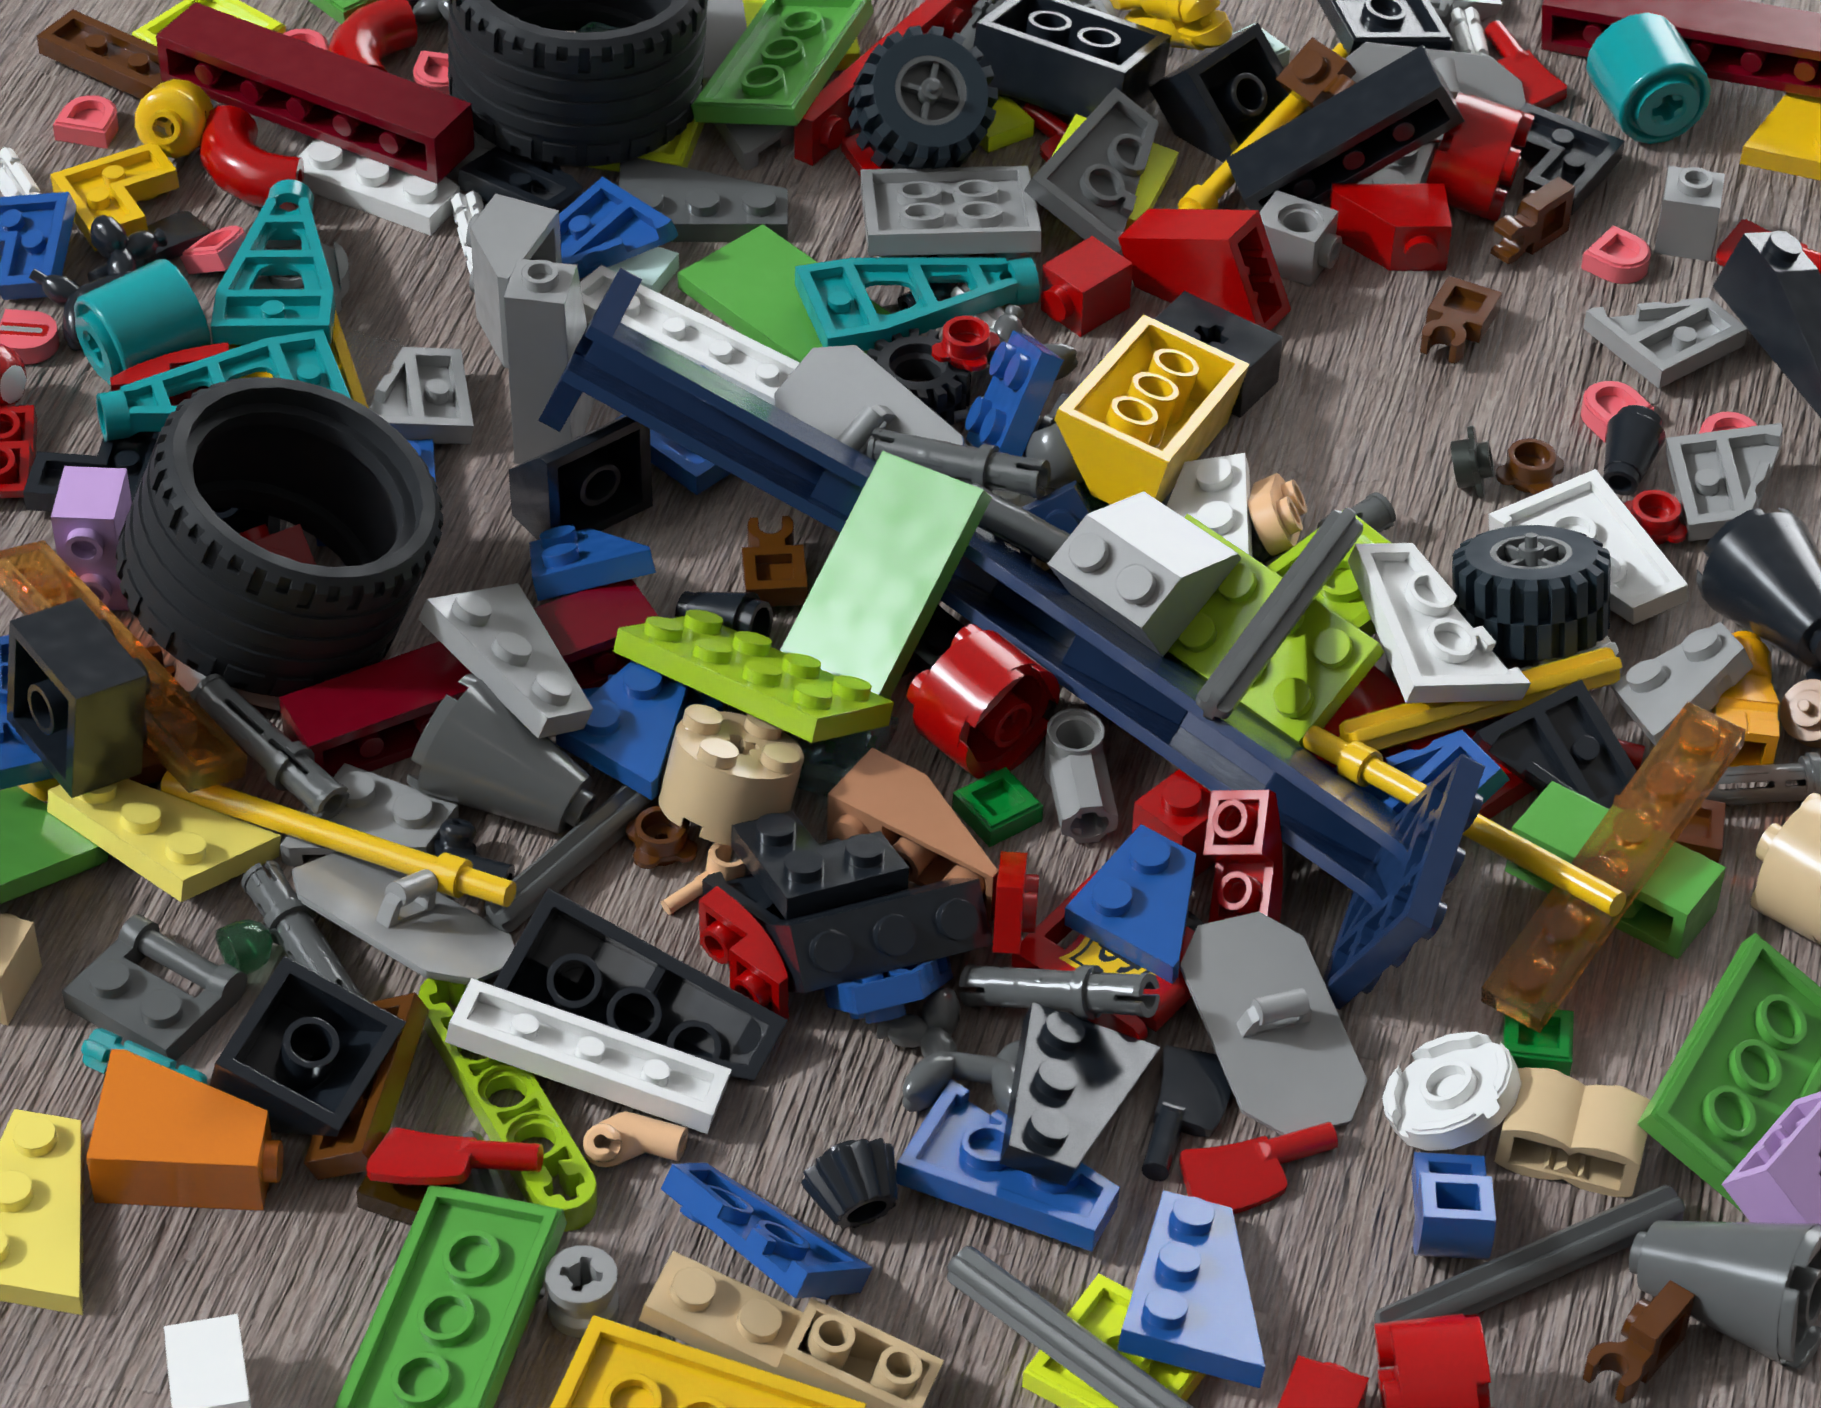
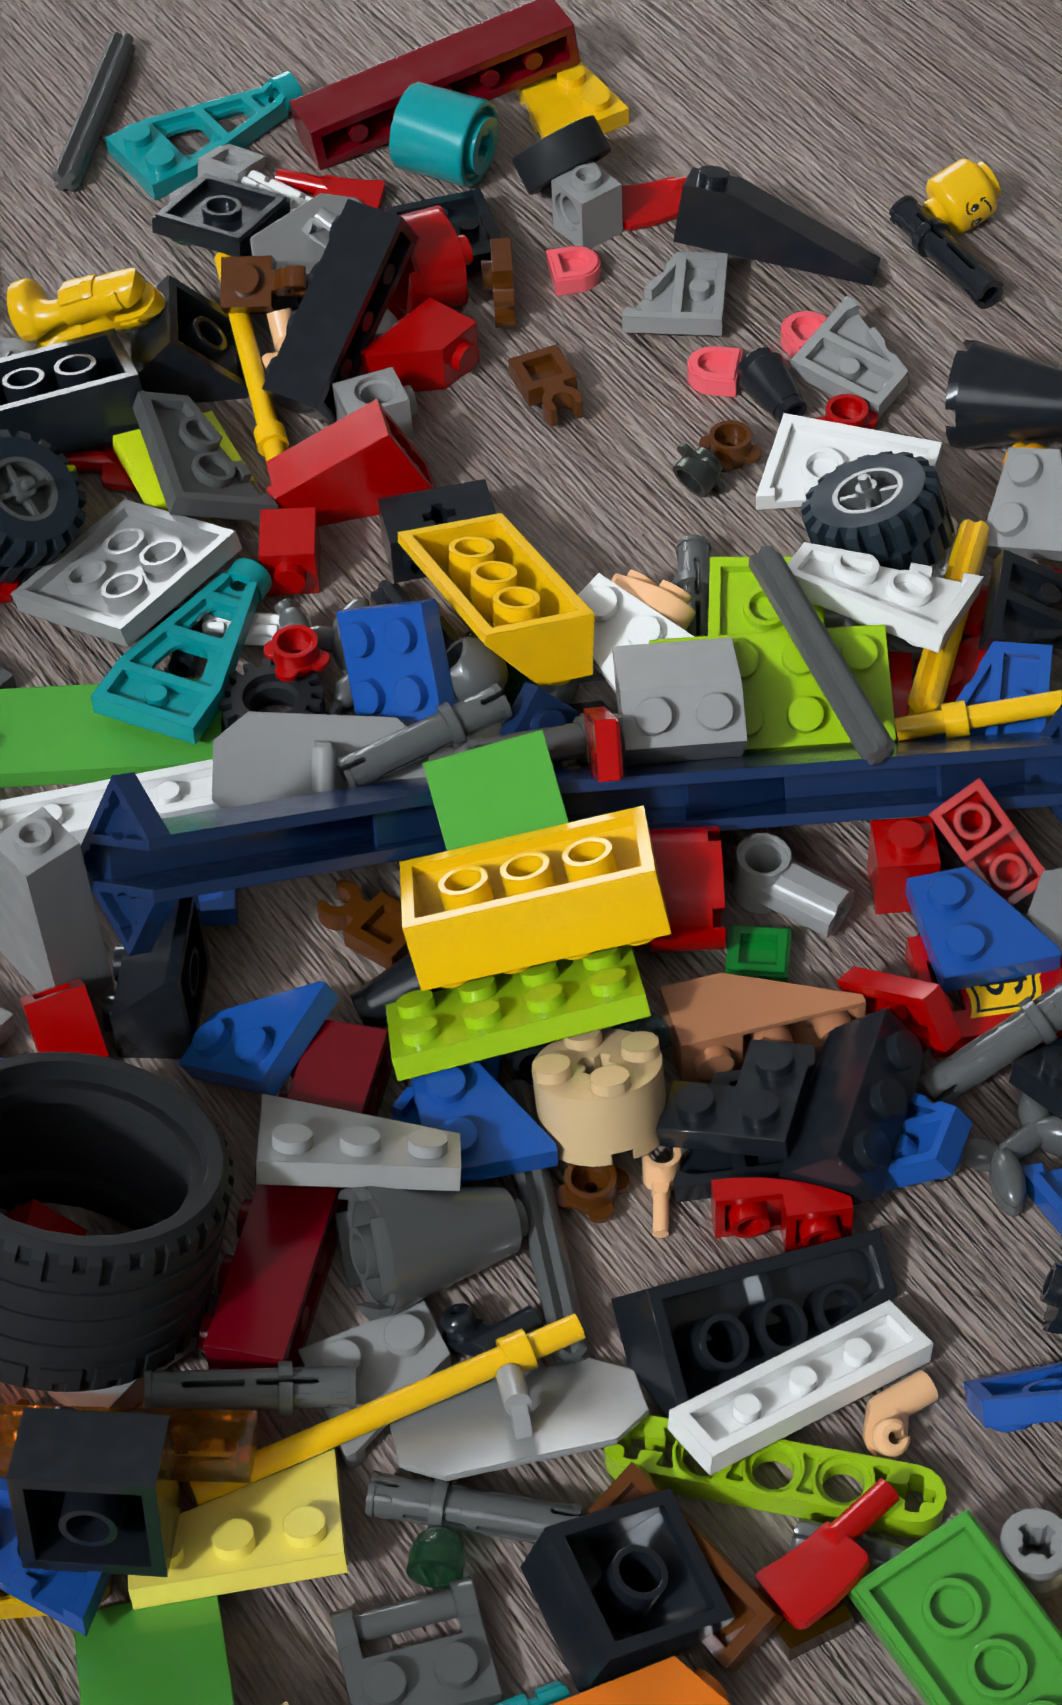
camera: 45 degrees left, 5 degrees up
(479, 456) = (63, 1020): none -> red brick
(843, 605) = (532, 899): none -> yellow slope
(1030, 545) = (603, 744): none -> red tile
(1720, 149) = (560, 153): none -> black tyre

